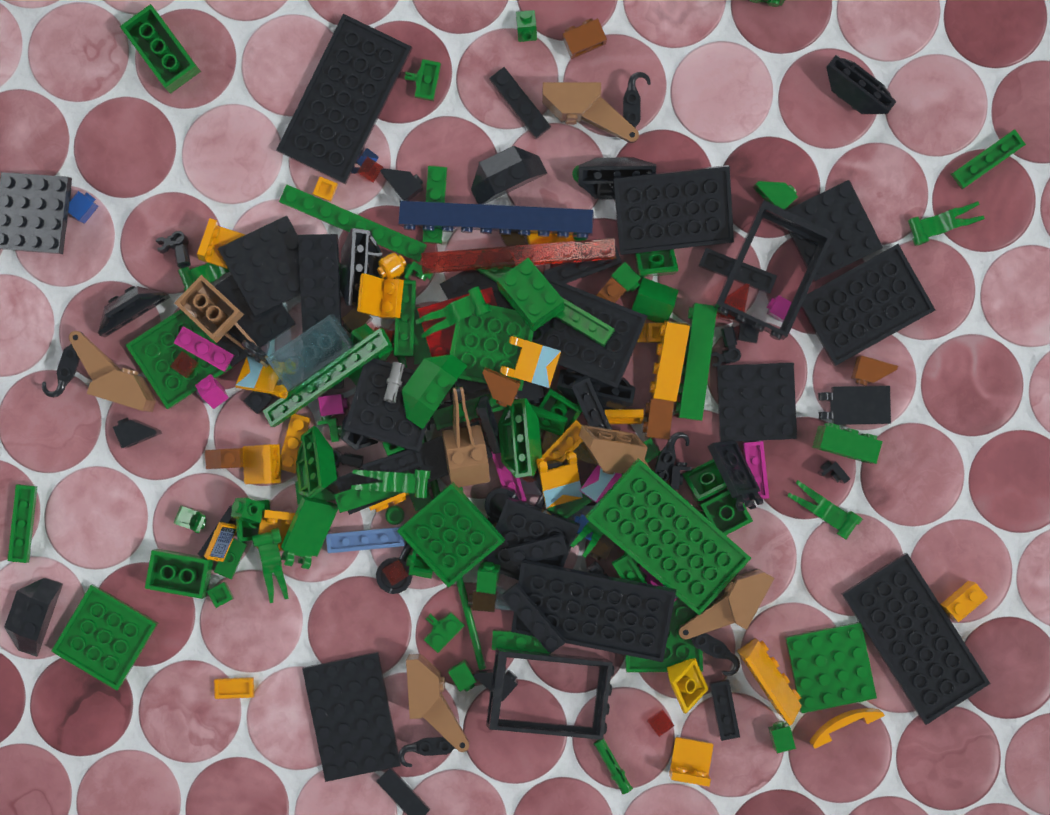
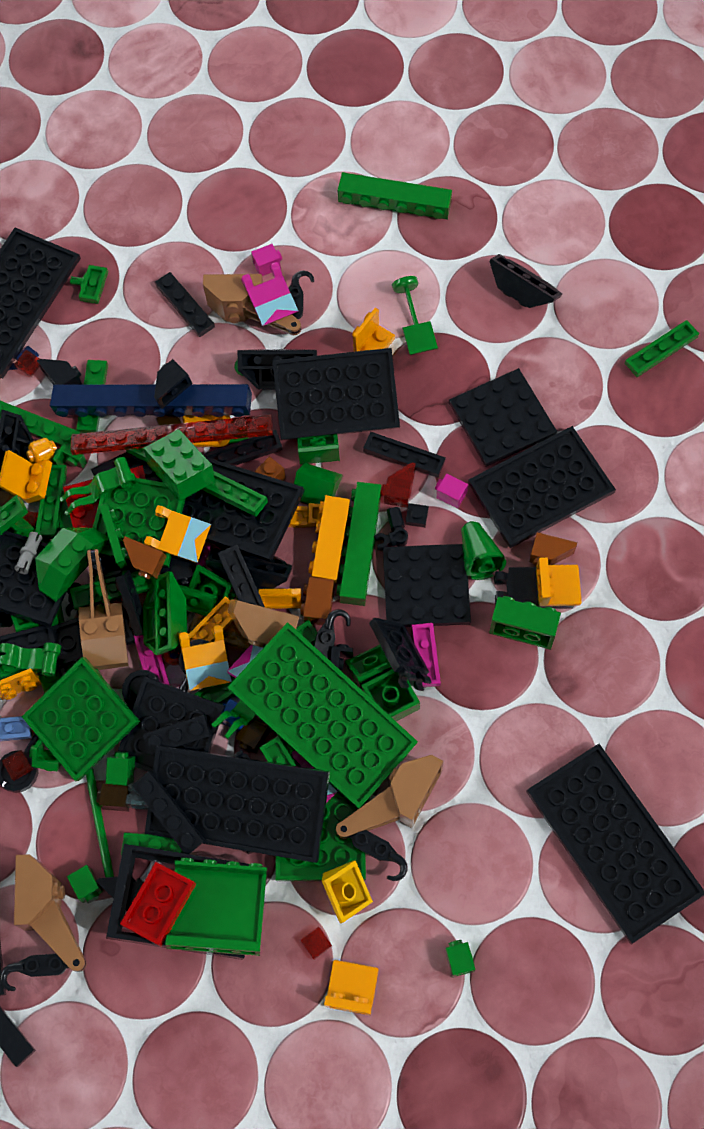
camera: 10 degrees right, 20 degrees down
(394, 515) = (22, 704): green plate -> none
(442, 630) = (66, 833): green plate -> none
(473, 364) = (115, 535): none -> green plate
(505, 173) = (150, 362): black wedge -> none
(518, 207) = (170, 383): none -> black slope
(526, 26) = (194, 237): green bracket -> none
(532, 702) = (158, 904): none -> red plate
(580, 702) = (222, 910): none -> green panel
(584, 38) = (244, 243): dark orange brick -> none
(601, 54) = (264, 257): none -> dark pink brick
(611, 109) = (272, 298): none -> dark pink flag
(616, 772) = (257, 995): green pin -> none
(626, 277) = (287, 459): green brick -> none
(708, 149) = (371, 334): none -> light orange bracket
(724, 710) = (391, 926): black plate -> none
(752, 142) = (417, 336): none -> green piece
(771, 680) = (443, 886): light orange slope -> none
(776, 193) = (443, 381): green slope -> none
(793, 224) = (455, 403): black window -> none
(807, 371) = (480, 552): none -> green cone
(822, 734) = (560, 932): light orange slope -> none
(828, 512) = (507, 700): green flag -> none
(831, 667) = (517, 877): green plate -> none
(837, 474) = (516, 655): black bracket -> none
(878, 406) = (558, 584): none -> light orange bracket
(940, 223) = (600, 413): green flag -> none
(963, 601) = (667, 796): light orange brick -> none

